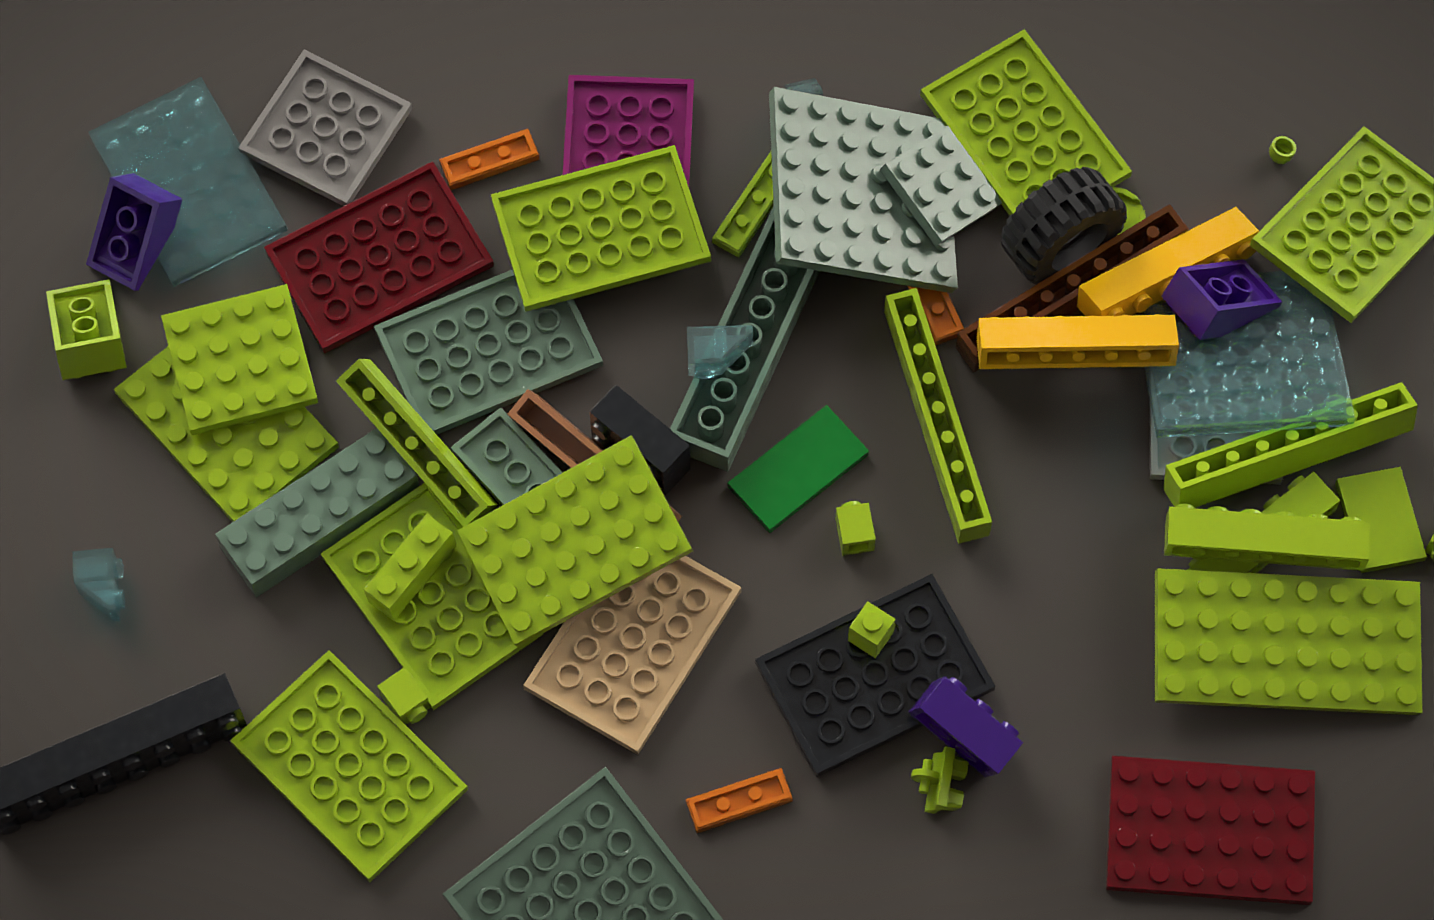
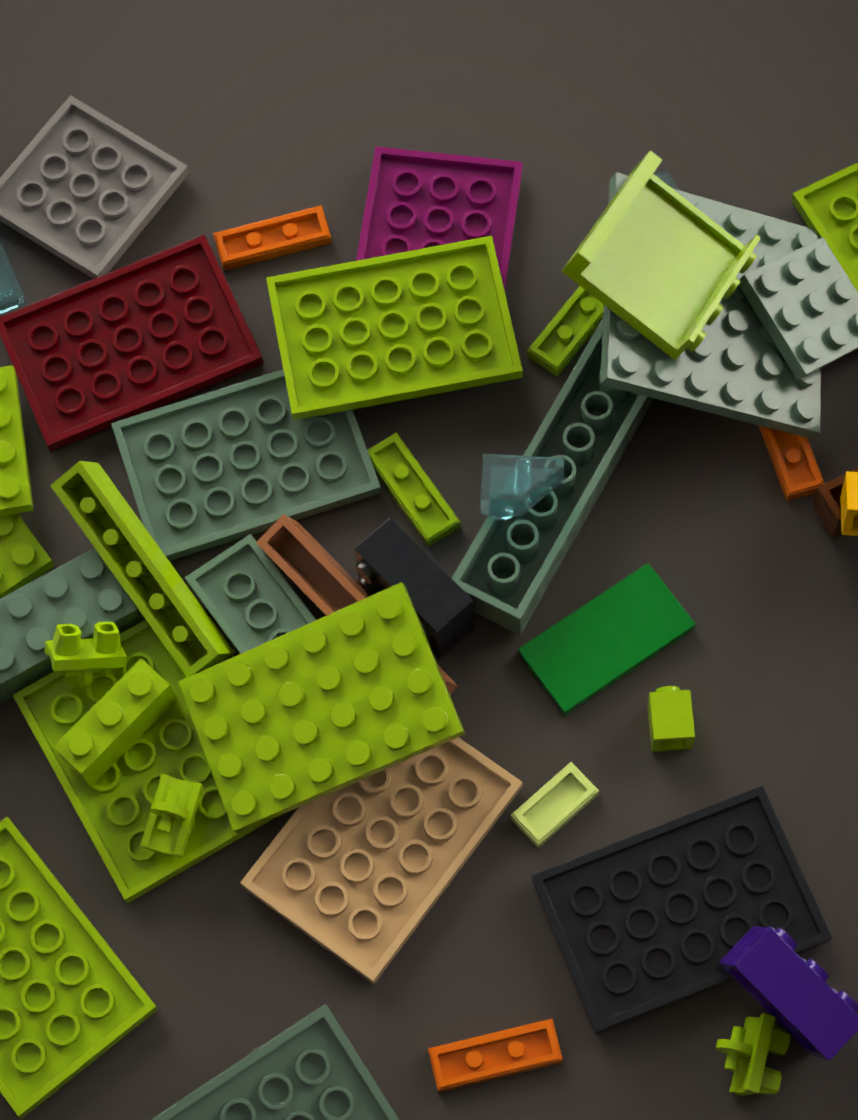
camera: 10 degrees right, 0 degrees up
(380, 516) = (87, 655): none -> lime hips
(404, 697) = (92, 885): lime brick -> none
(464, 636) = (171, 816): none -> lime hips
(629, 361) = (413, 490): none -> lime tile
(768, 603) = (554, 804): none -> yellowish green tile
(816, 158) = (659, 261): none -> lime panel
(871, 629) = (680, 852): lime brick -> none
(937, 416) = (785, 590): lime brick -> none

